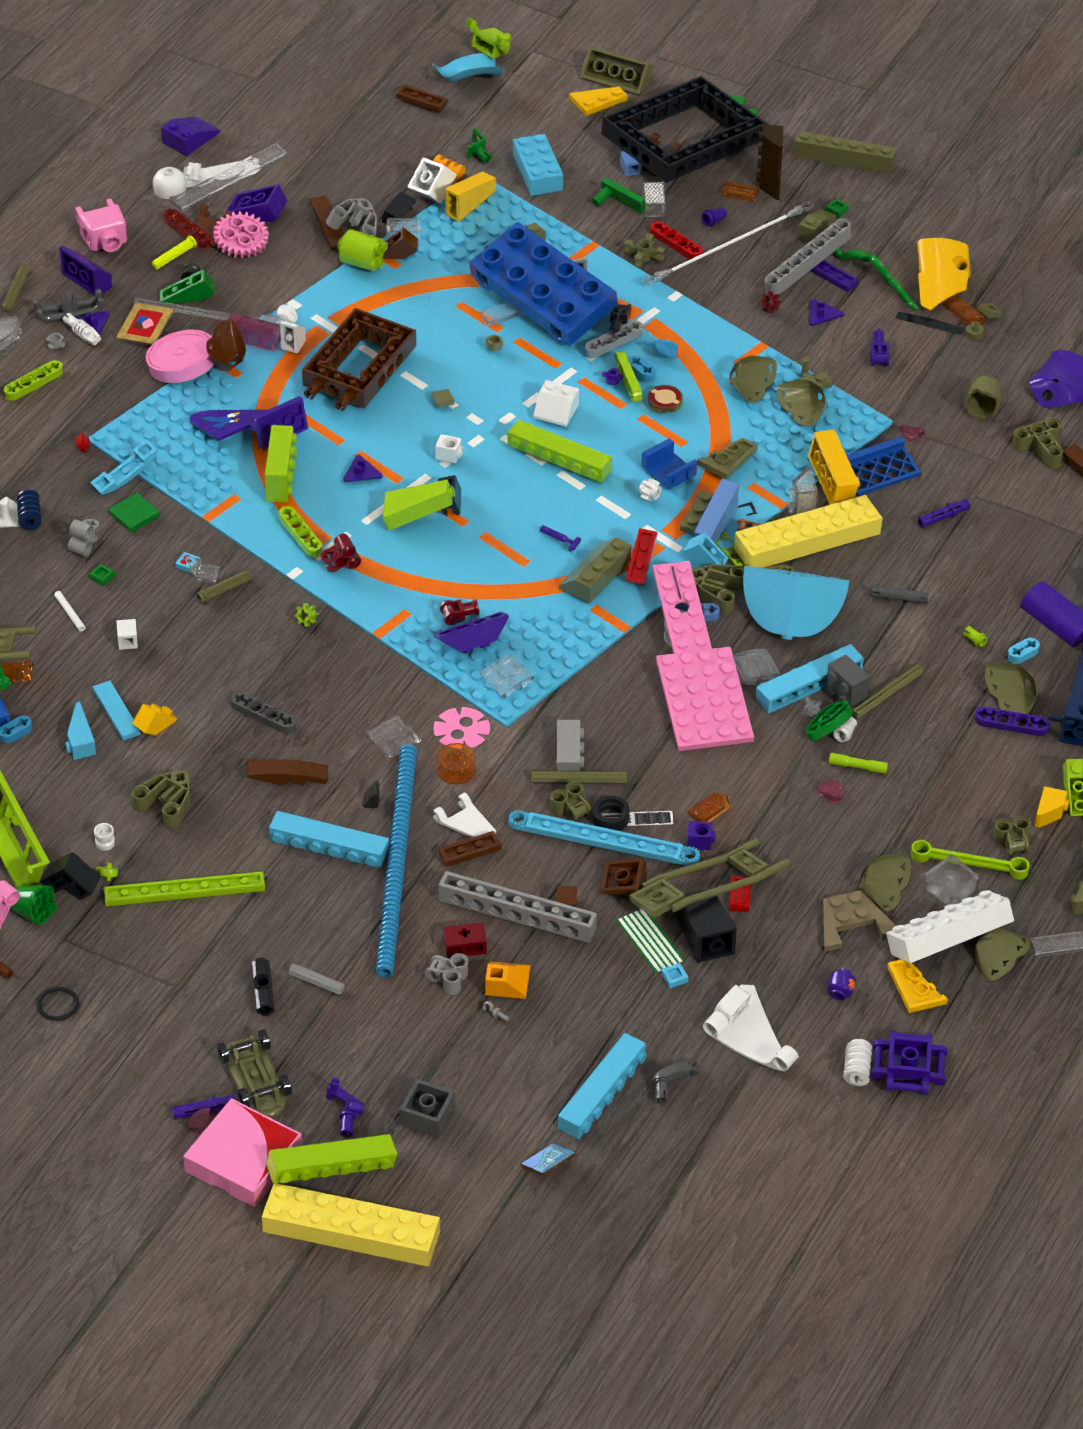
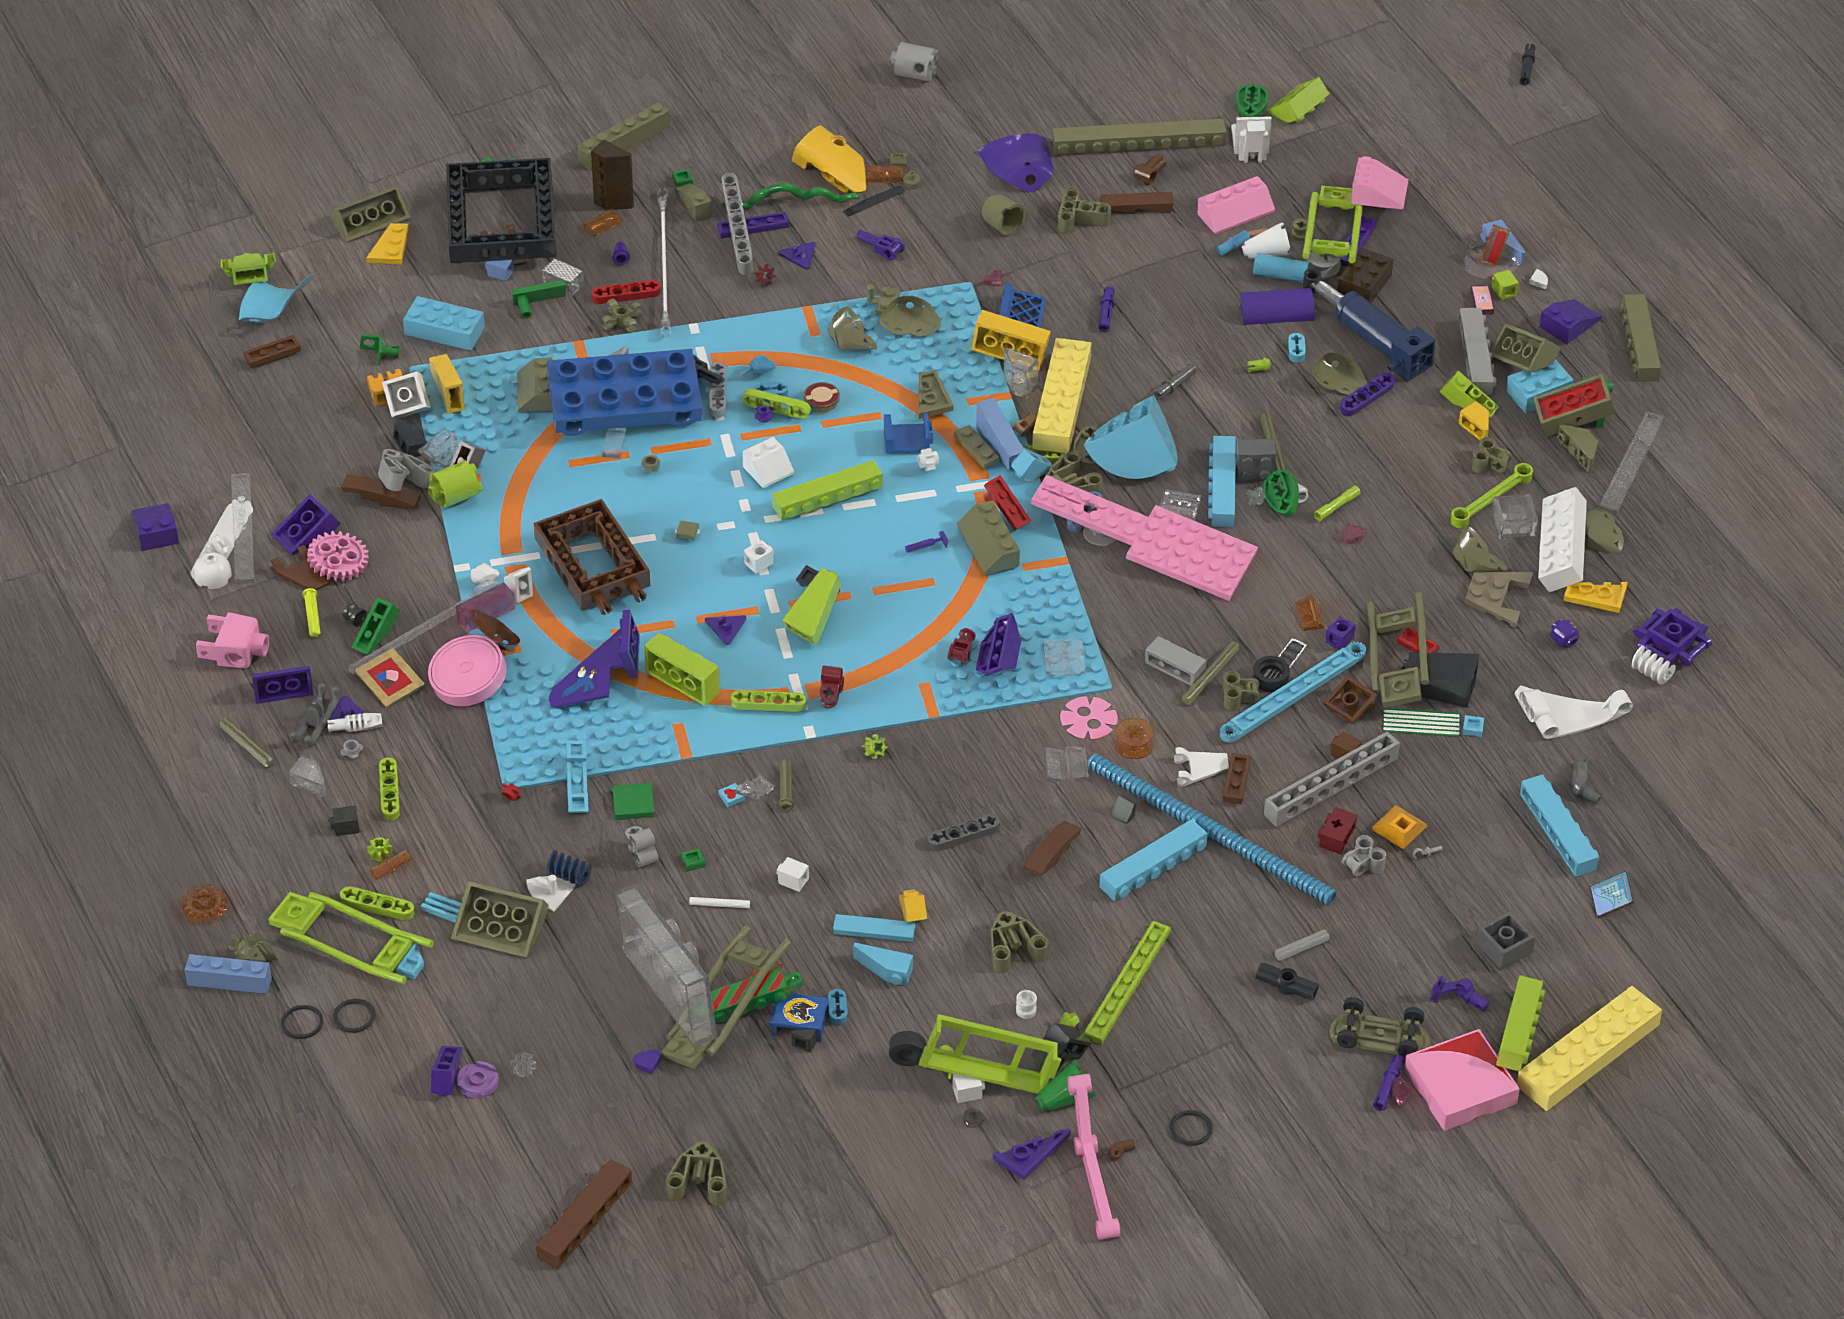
camera: 55 degrees left, 0 degrees up
(185, 229) = (288, 584): clear red beam -> none

